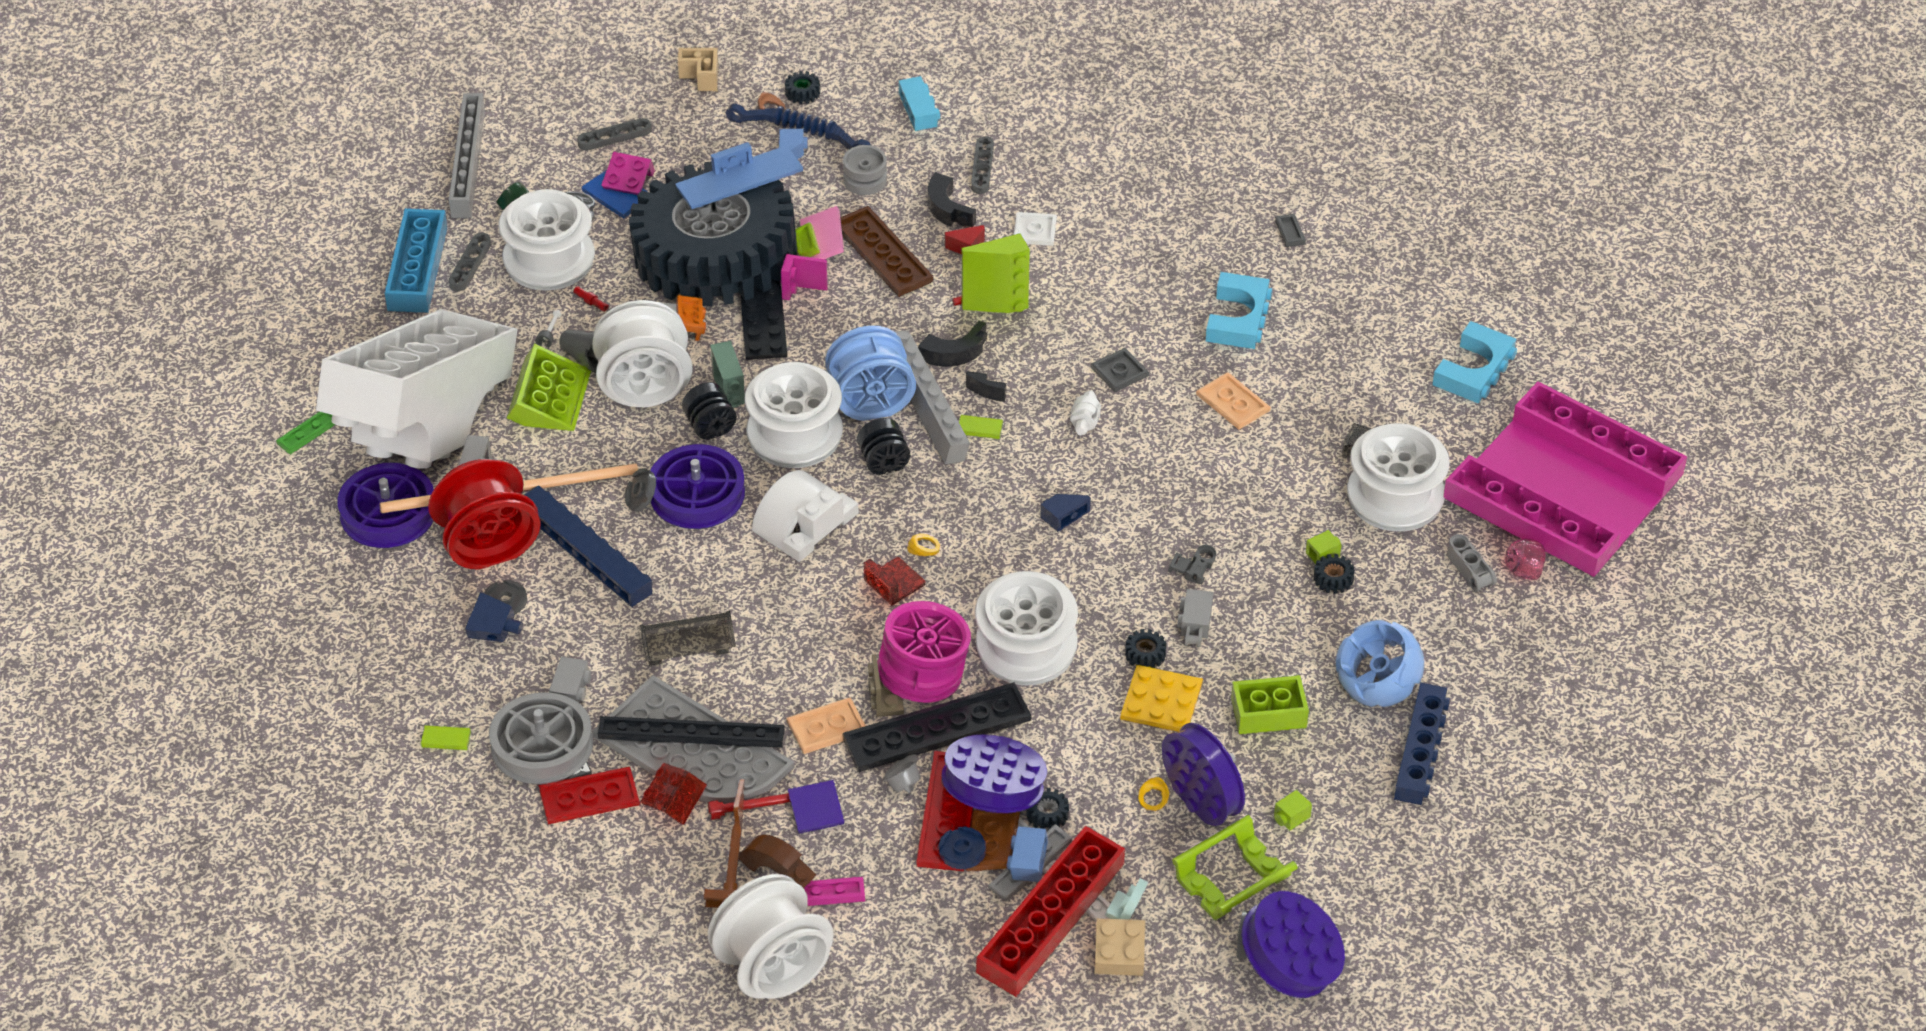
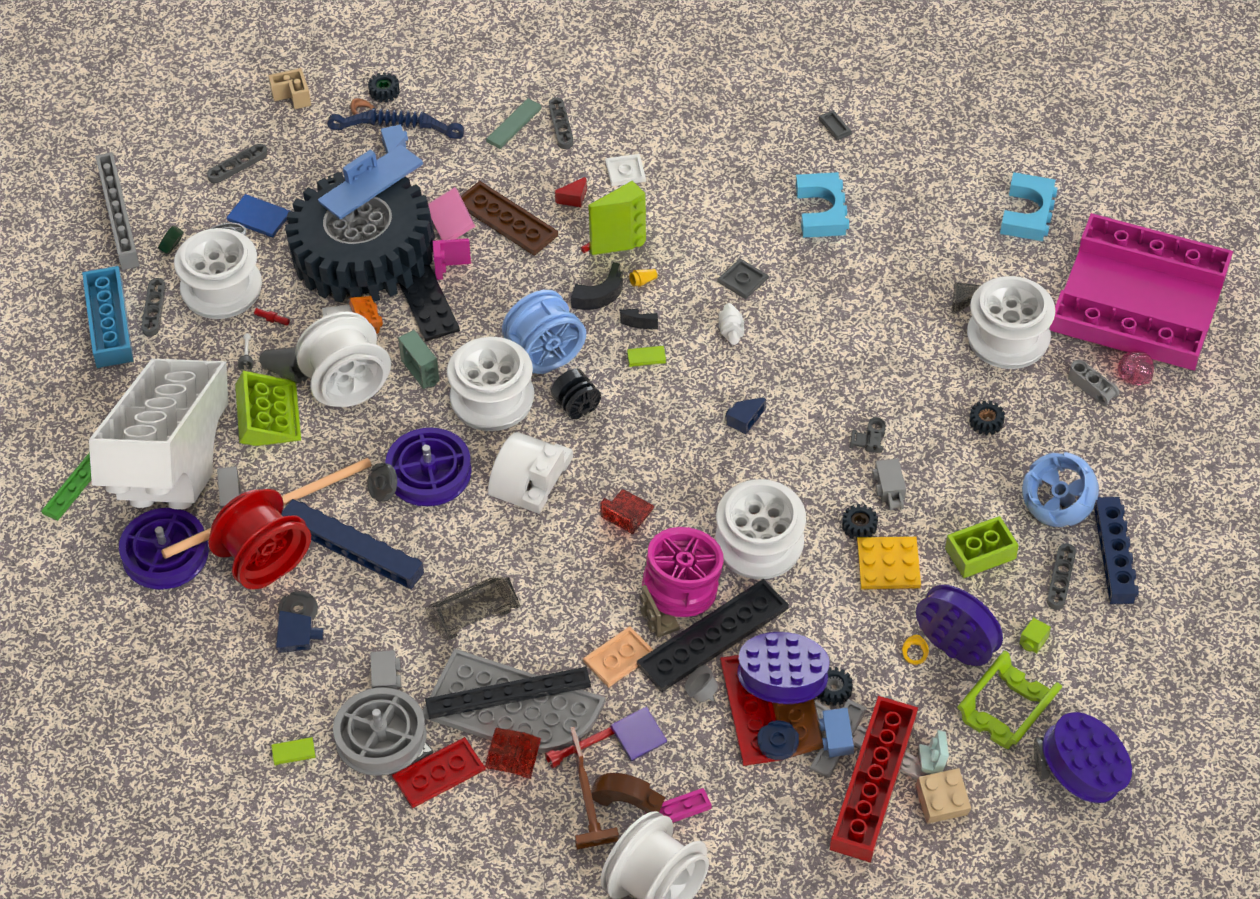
camera: 15 degrees left, 5 degrees up
(627, 173) = (263, 196): dark pink bracket -> none
(709, 410) = (415, 396): black wheel -> none
(806, 241) = (441, 226): lime tile -> none
(865, 170) = (465, 149): light grey wheel -> none
(916, 549) = (634, 478): yellow piece -> none
(918, 103) = (487, 80): medium azure brick -> none
(931, 154) = (514, 123): none -> sand green tile
(934, 408) = (607, 351): light grey brick -> none
(943, 208) = (543, 168): black arch -> none
(1007, 343) = (642, 276): none -> yellow cone
(1233, 400) = (846, 284): light nougat tile -> none
(1323, 544) = (970, 396): lime brick -> none
(1347, 756) = (1059, 576): none -> dark grey beam

